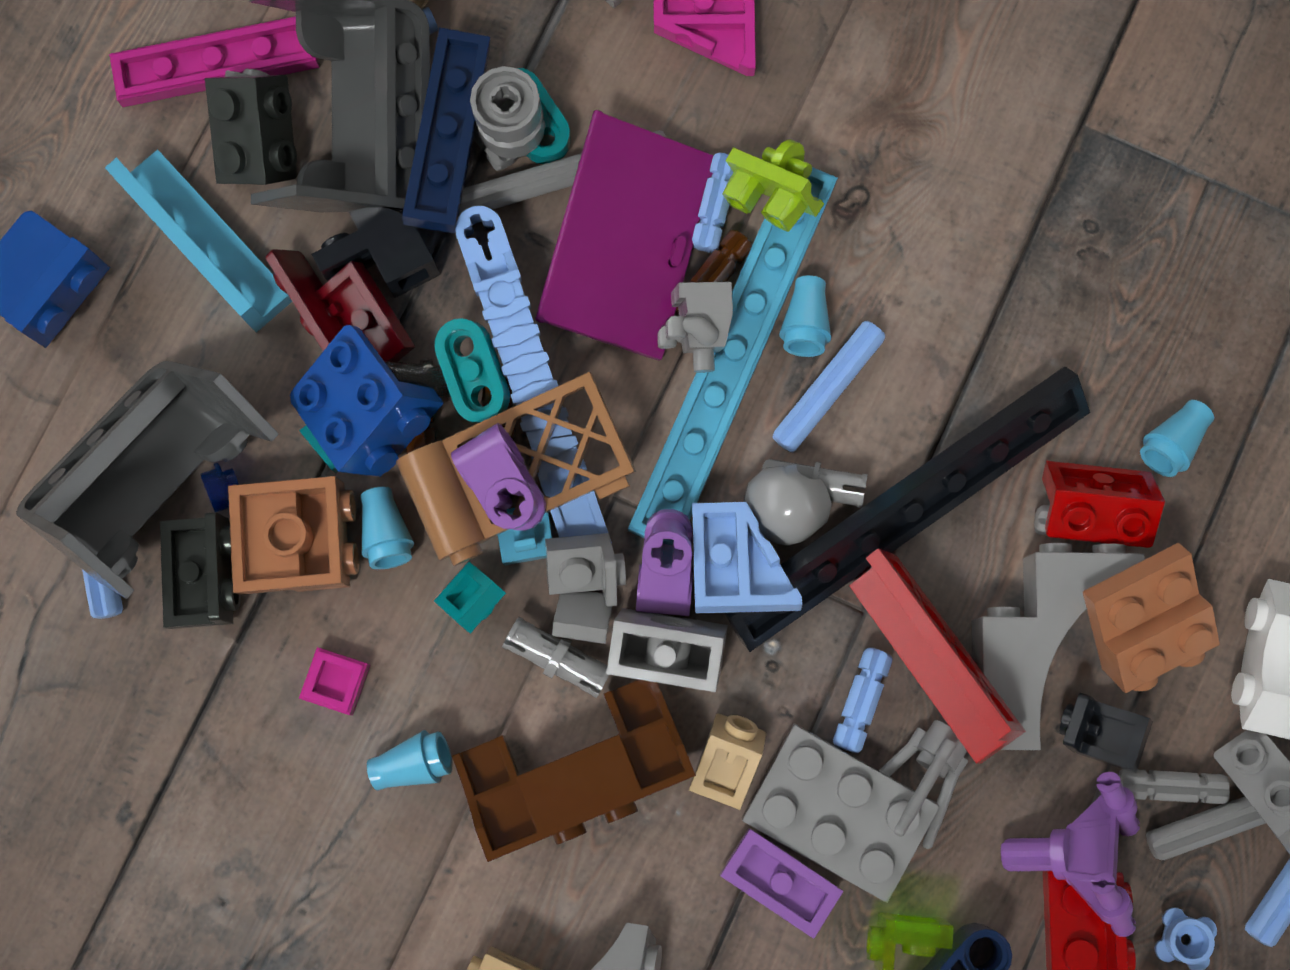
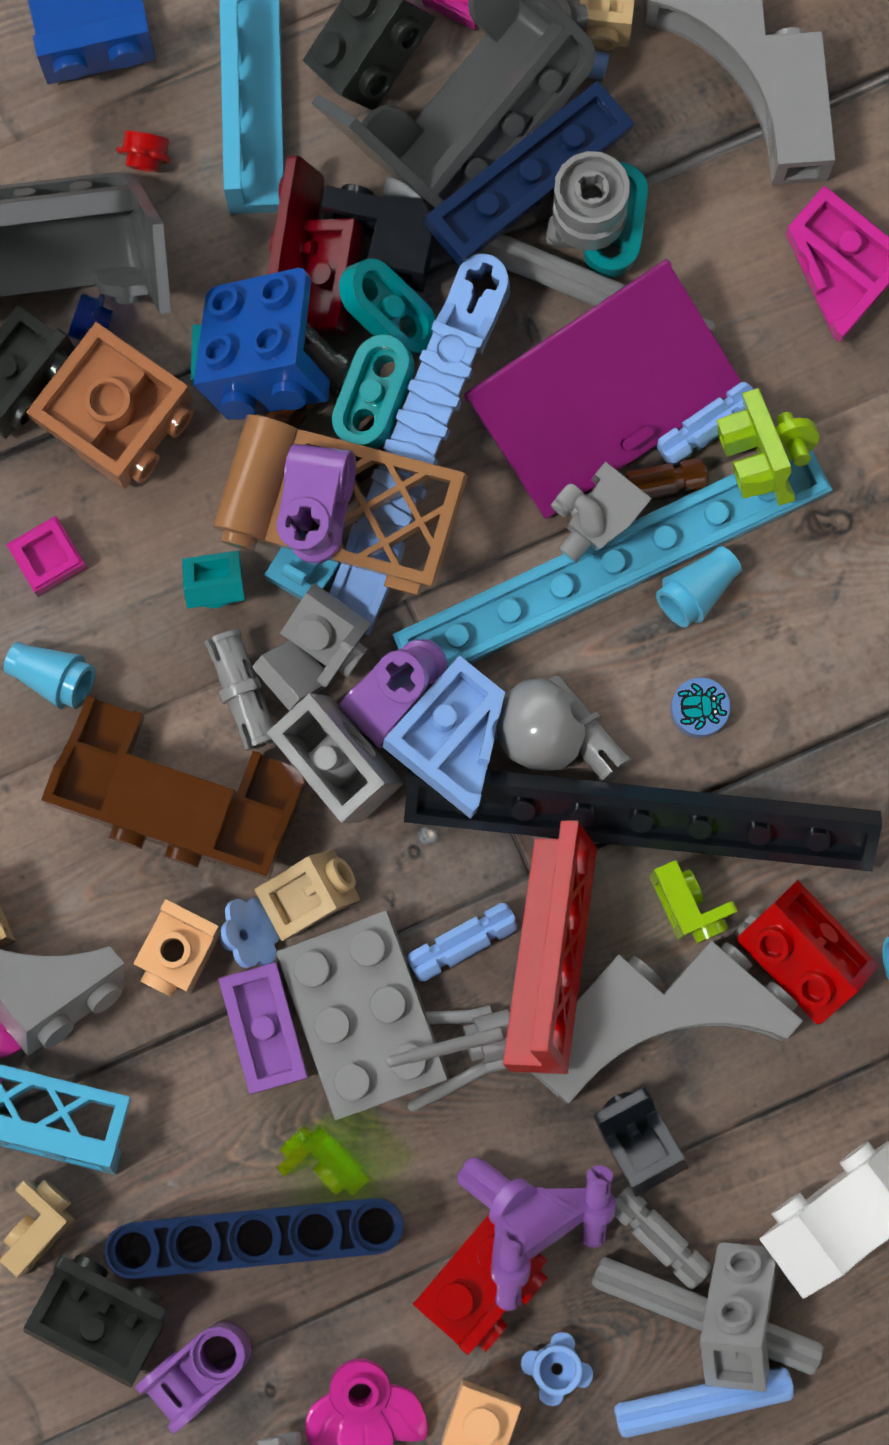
camera: 40 degrees right, 0 degrees up
(157, 337) = (144, 151): none -> red plate
(384, 532) = (190, 467): medium azure cone -> none
(426, 302) = (384, 301): none -> teal plate
(667, 860) = (199, 941): none -> light nougat brick
(713, 824) = (249, 933): none -> light blue plant
(828, 386) = (667, 660): light blue axle -> none
(879, 399) = (700, 707): none -> tile
(983, 540) = (679, 898): none -> lime bracket
(1151, 620) = (760, 1080): nougat plate -> none

